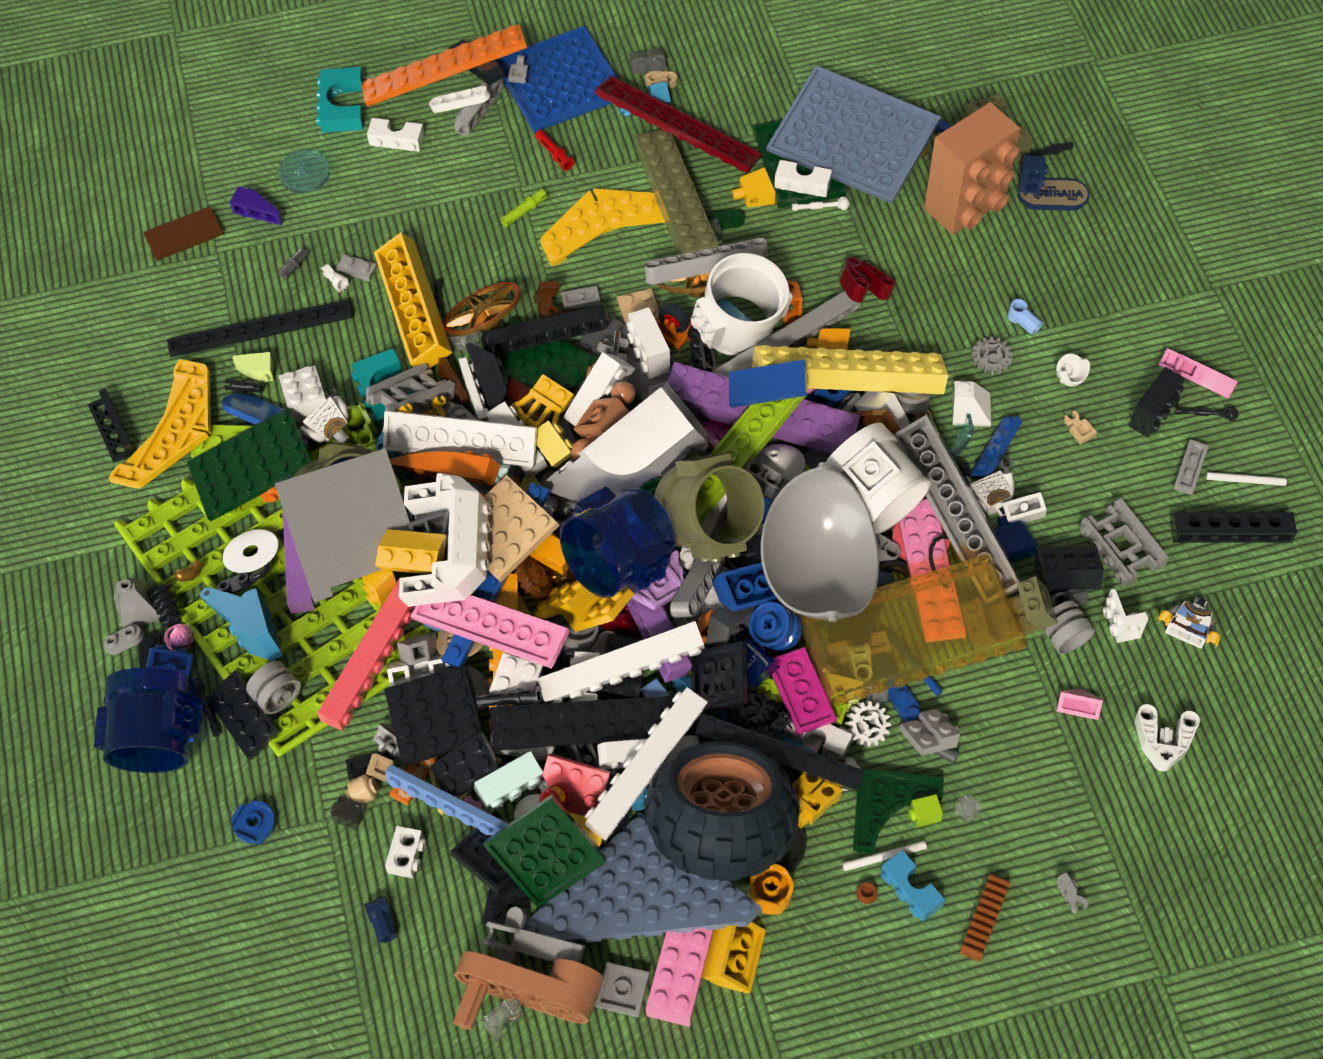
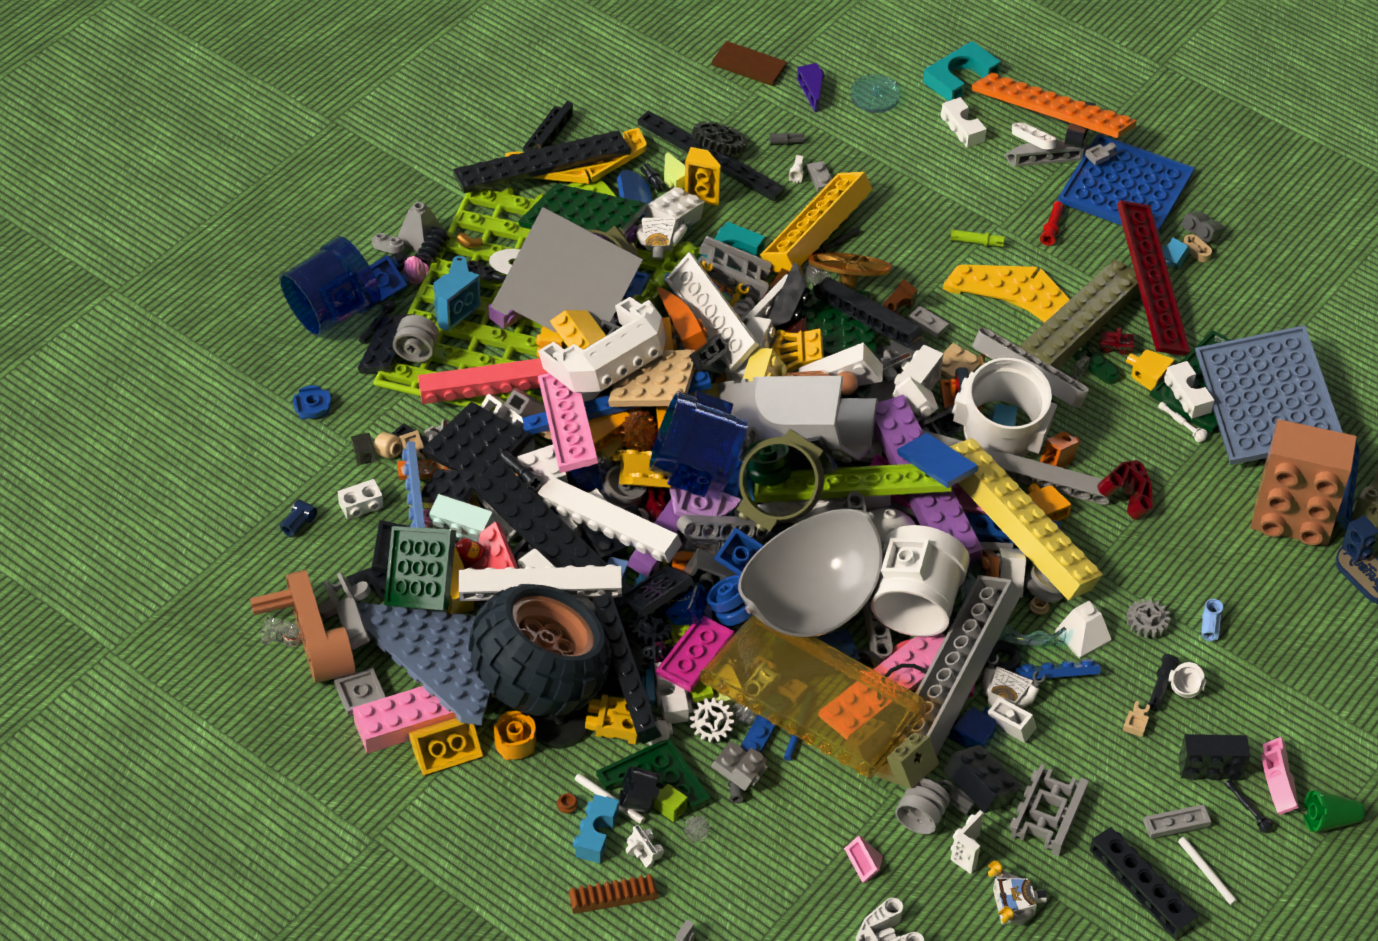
camera: 50 degrees right, 10 degrees down
(149, 458) = (541, 161): none -> black plate
(251, 308) = (719, 137): none -> pearl dark grey gear
(290, 347) = (702, 176): none -> yellow slope
(514, 469) = (708, 352): none -> black plate
(680, 354) = (918, 397): none -> white slope
(713, 189) = (1116, 340): none -> dark red hips
(903, 826) = (639, 789): none -> black brick
(955, 862) = (641, 845): none -> white hips
(1052, 381) = (1169, 663): none -> black pin
(1252, 367) = (1330, 811): none -> green cone

